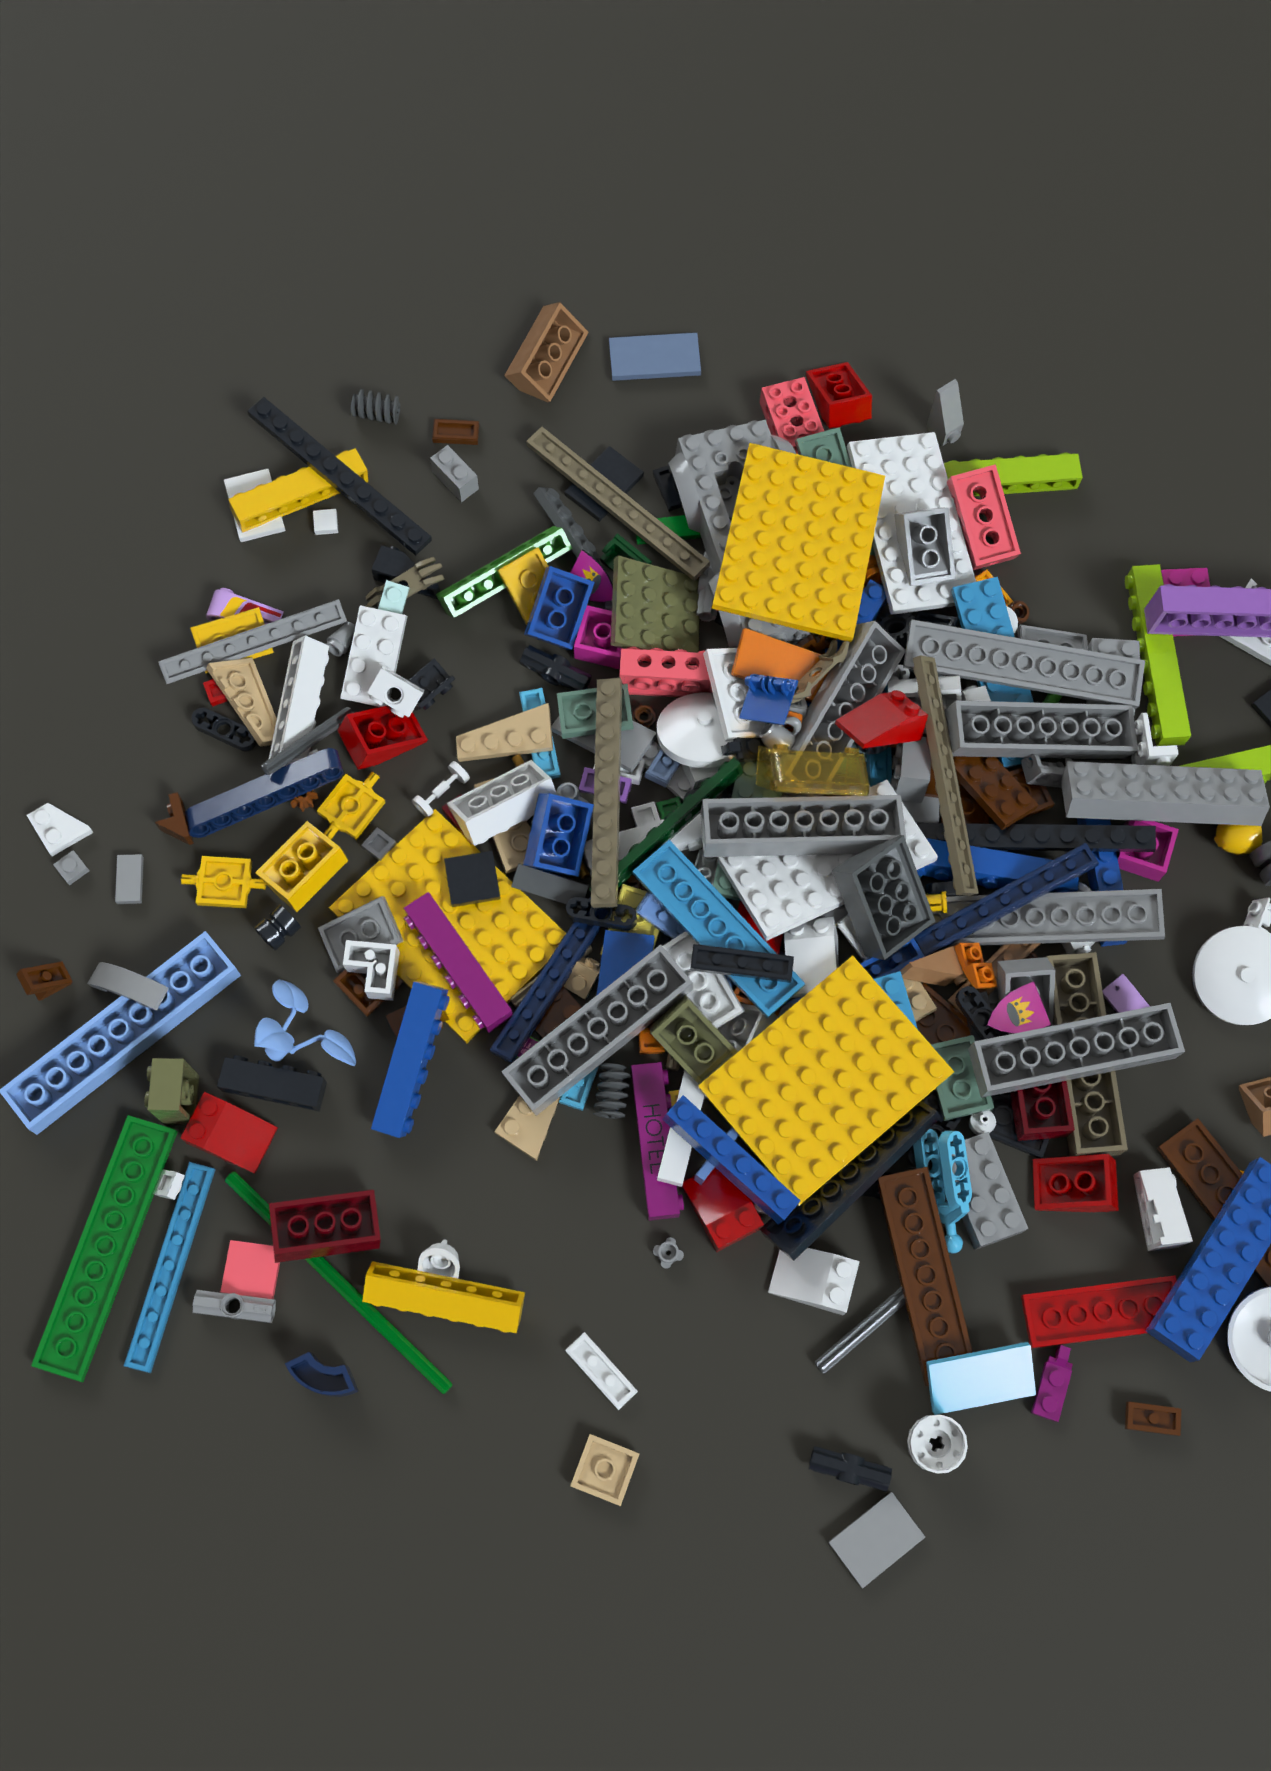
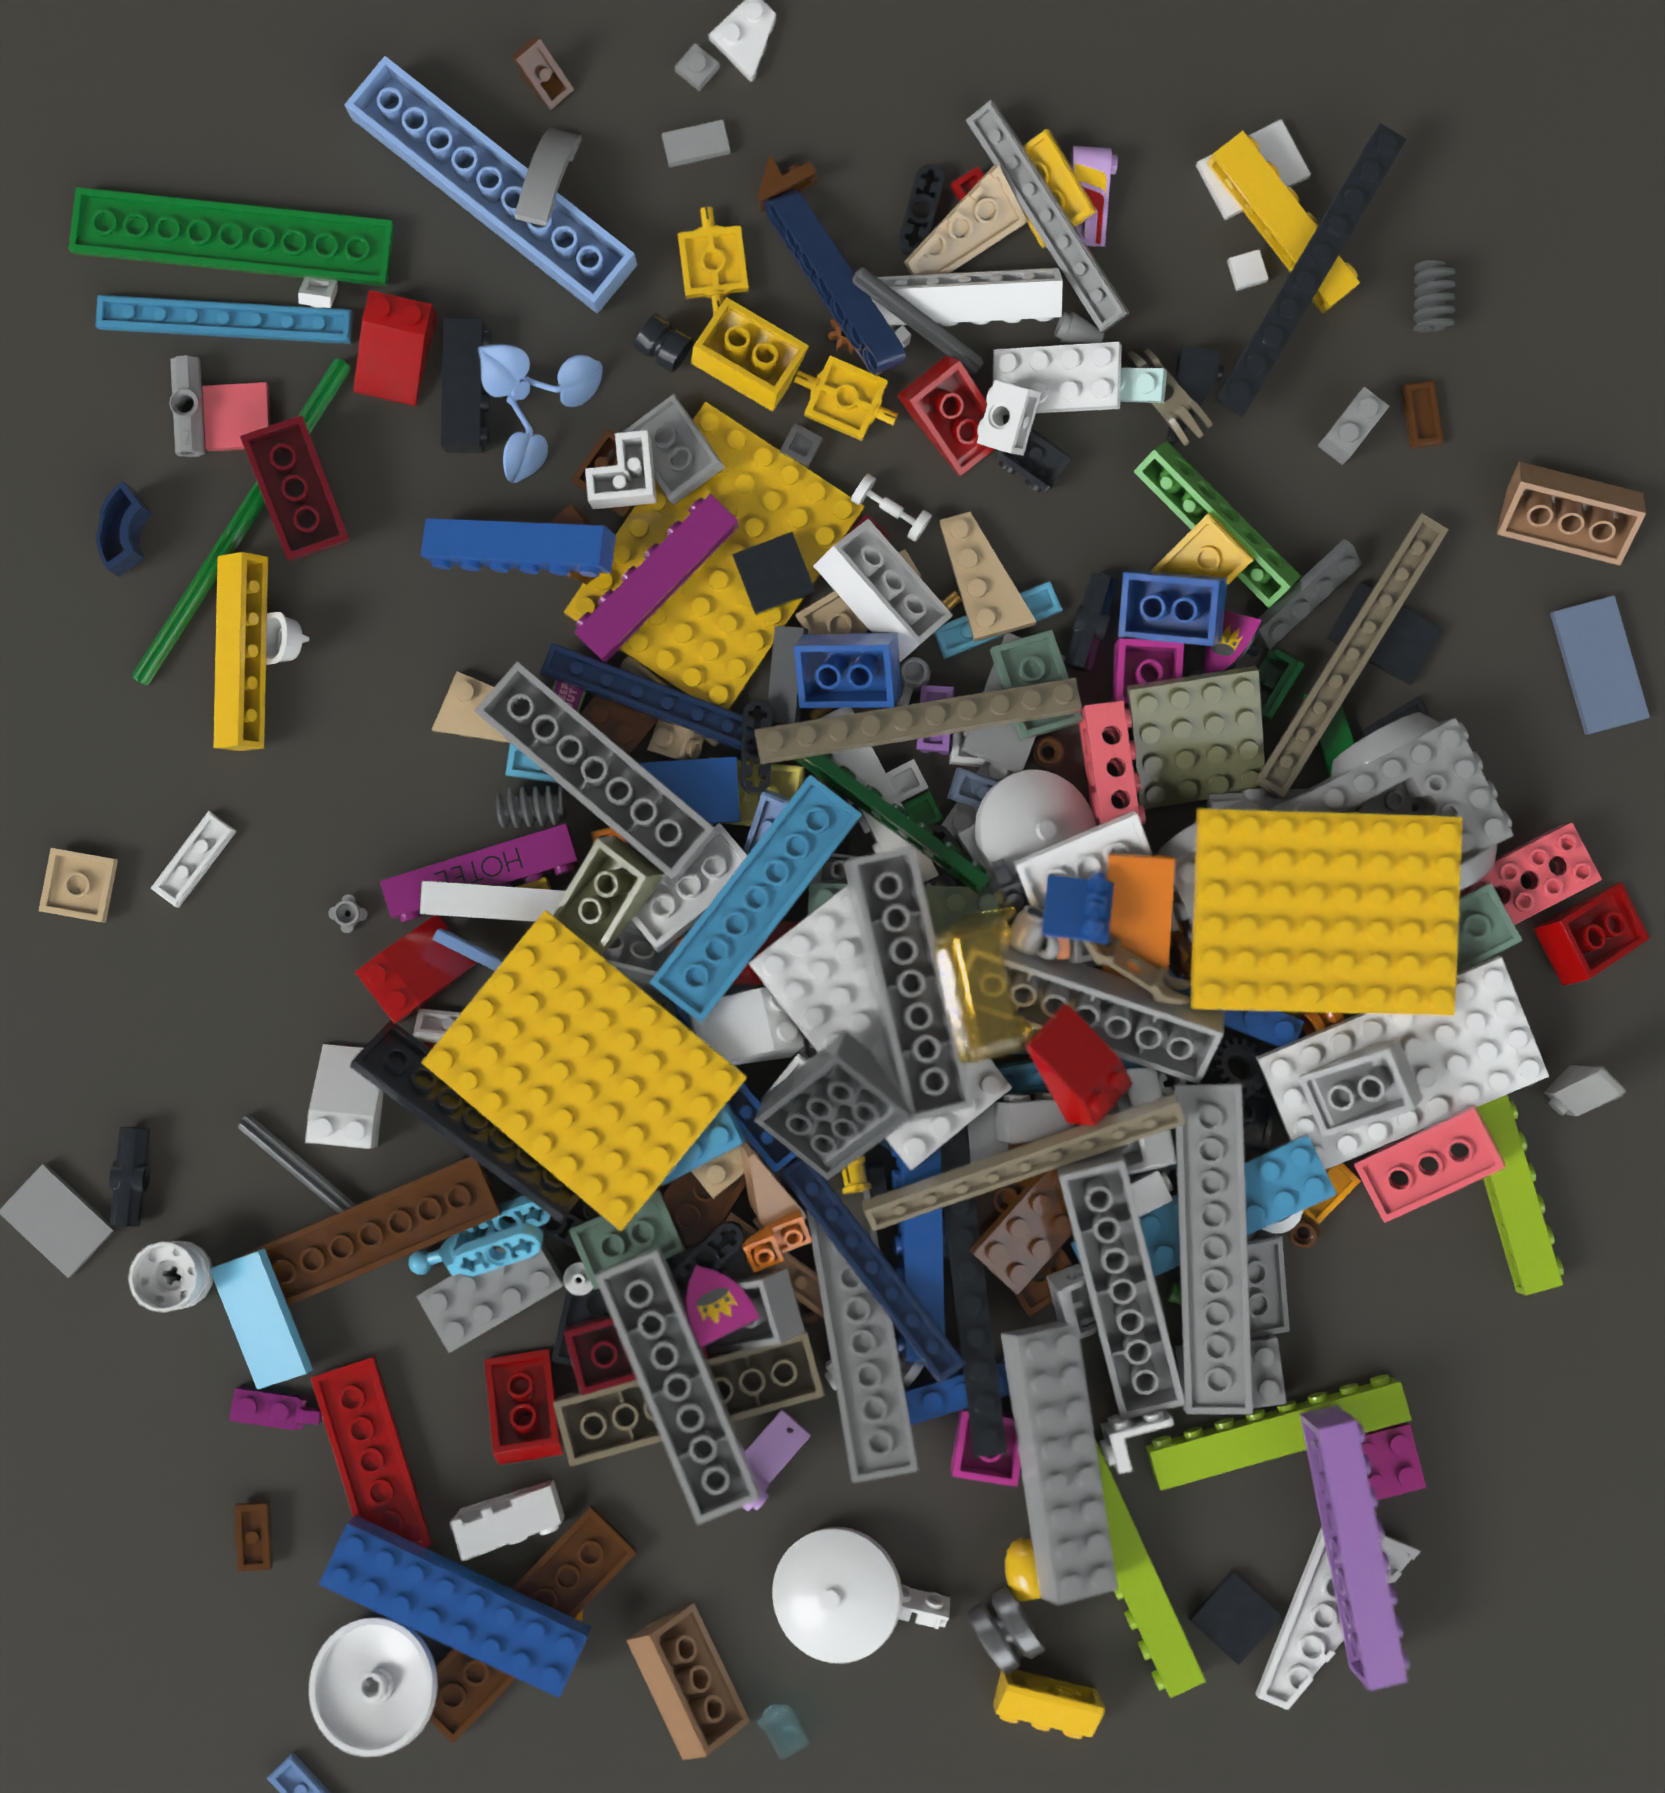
camera: 75 degrees right, 15 degrees up
(172, 1090) = (420, 264): olive brick -> none
(731, 1160) = (458, 967): blue brick -> none
(742, 963) = (710, 937): black tile -> none

